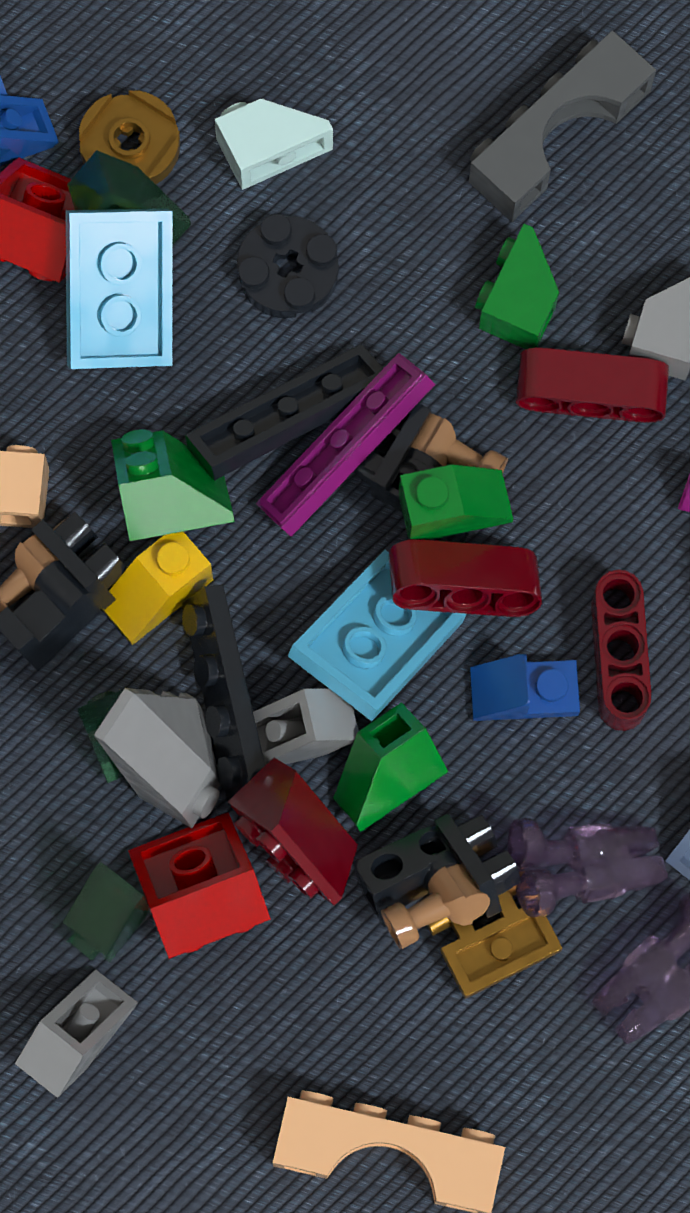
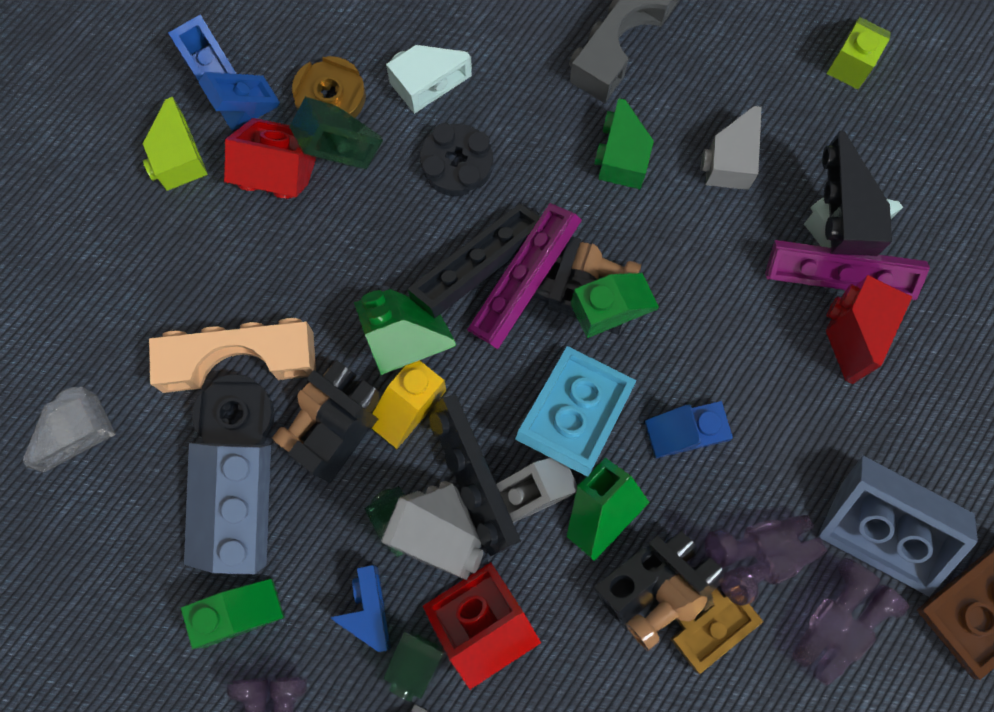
camera: 10 degrees left, 0 degrees up
(57, 853) = (370, 623): none -> blue slope
(119, 288) = (339, 192): medium azure plate -> none
(296, 831) = (548, 574): dark red slope -> none
(464, 578) = (630, 356): dark red beam -> none
(592, 385) = (688, 202): dark red beam -> none
(627, 626) = (759, 371): dark red beam -> none

